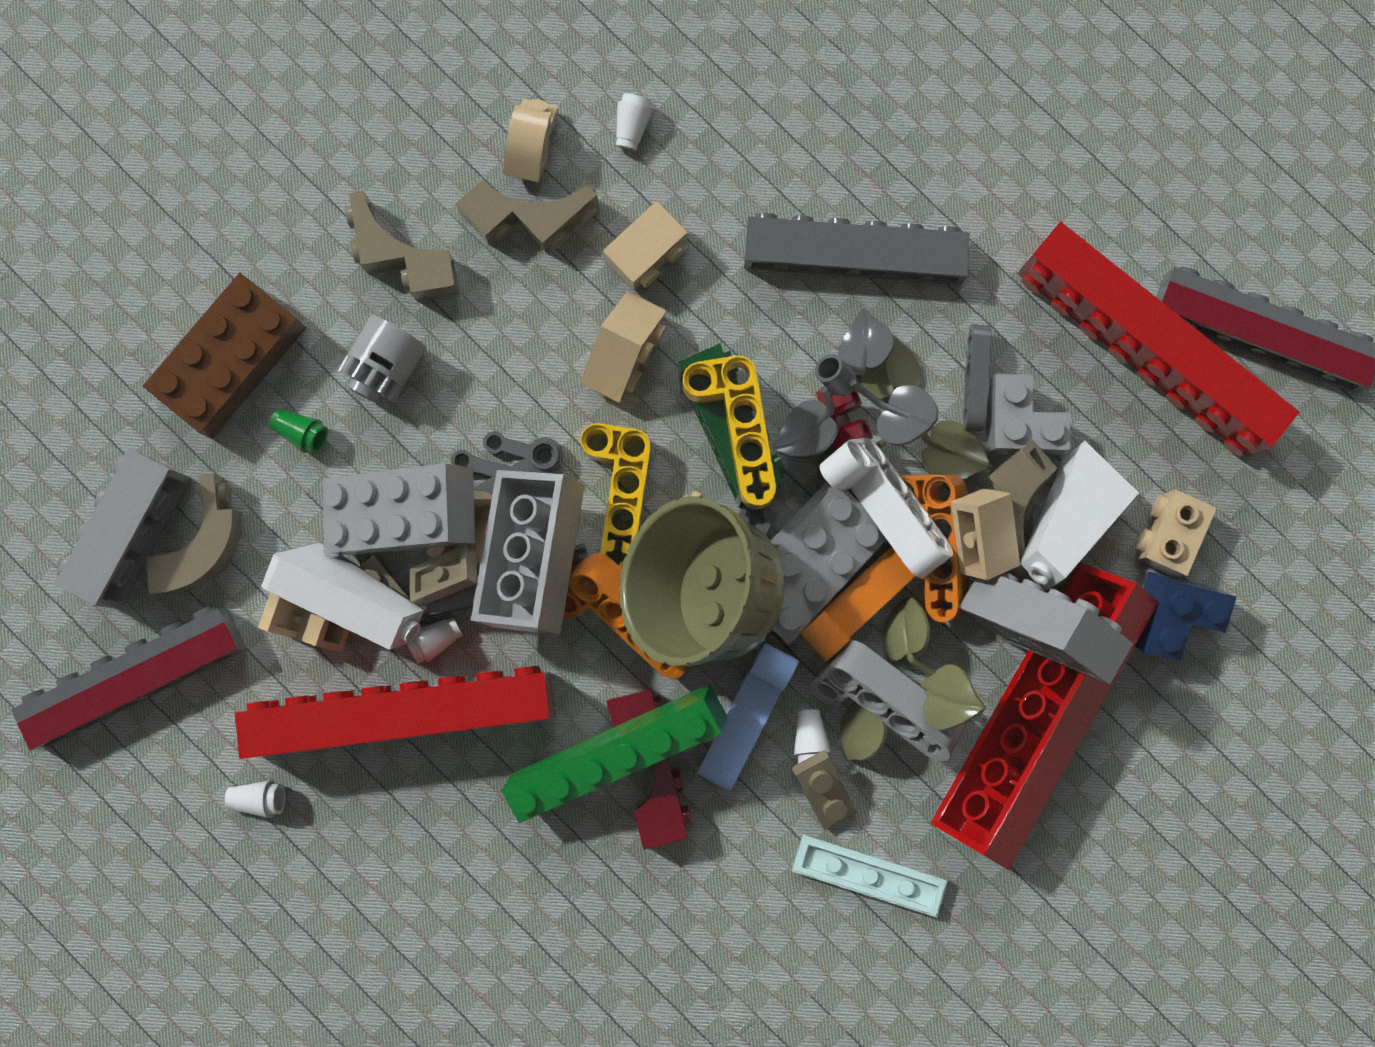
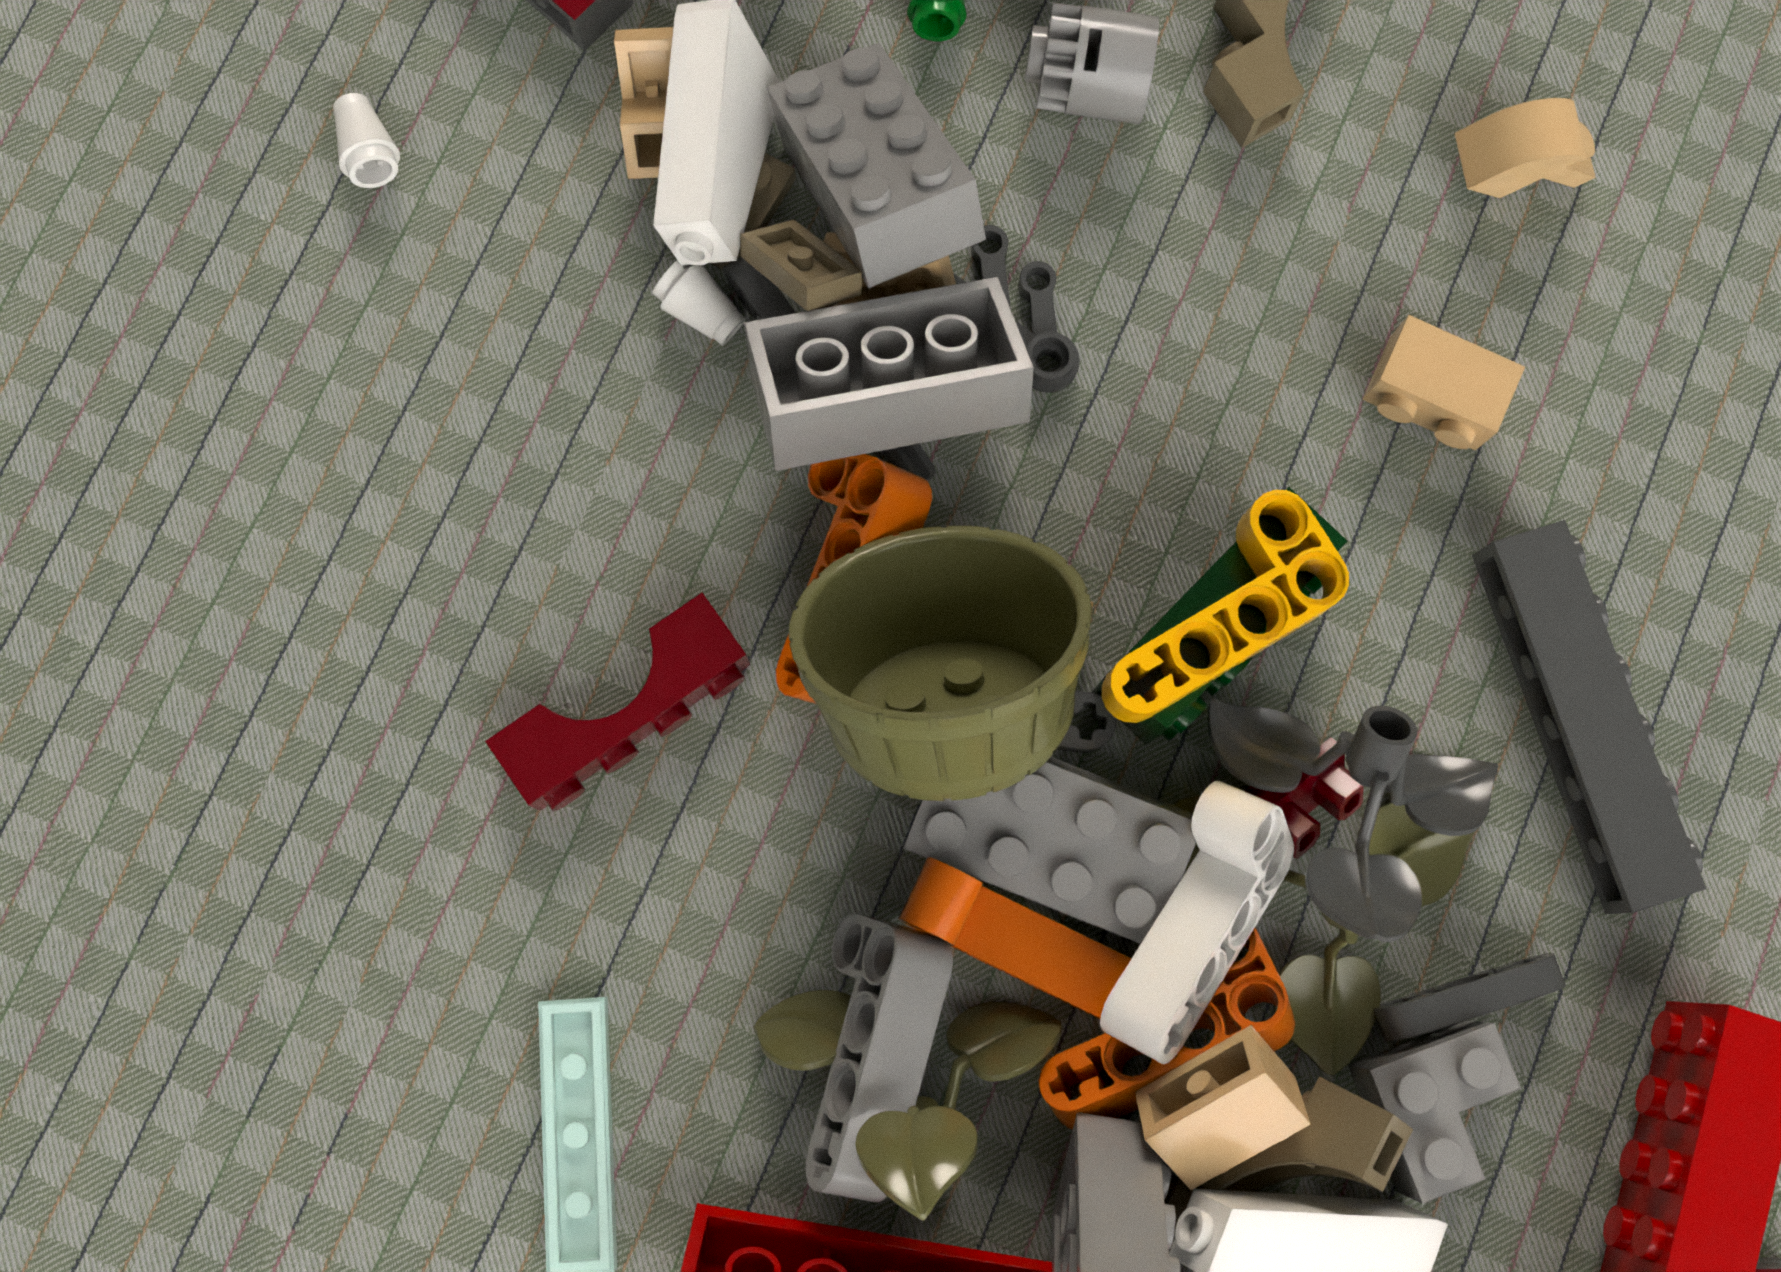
camera: 65 degrees right, 5 degrees down
(390, 715) = (566, 282): red brick -> none
(545, 222) = (1412, 222): dark tan arch -> none
(615, 753) = (623, 637): green brick -> none
(623, 344) = (1272, 402): tan brick -> none
(623, 466) = (1080, 481): yellow beam -> none
(632, 120) = (1627, 292): white cone -> none
(747, 716) = (762, 828): light blue beam -> none
(810, 735) = (764, 949): white cone -> none
(824, 789) = (688, 1000): dark tan plate -> none

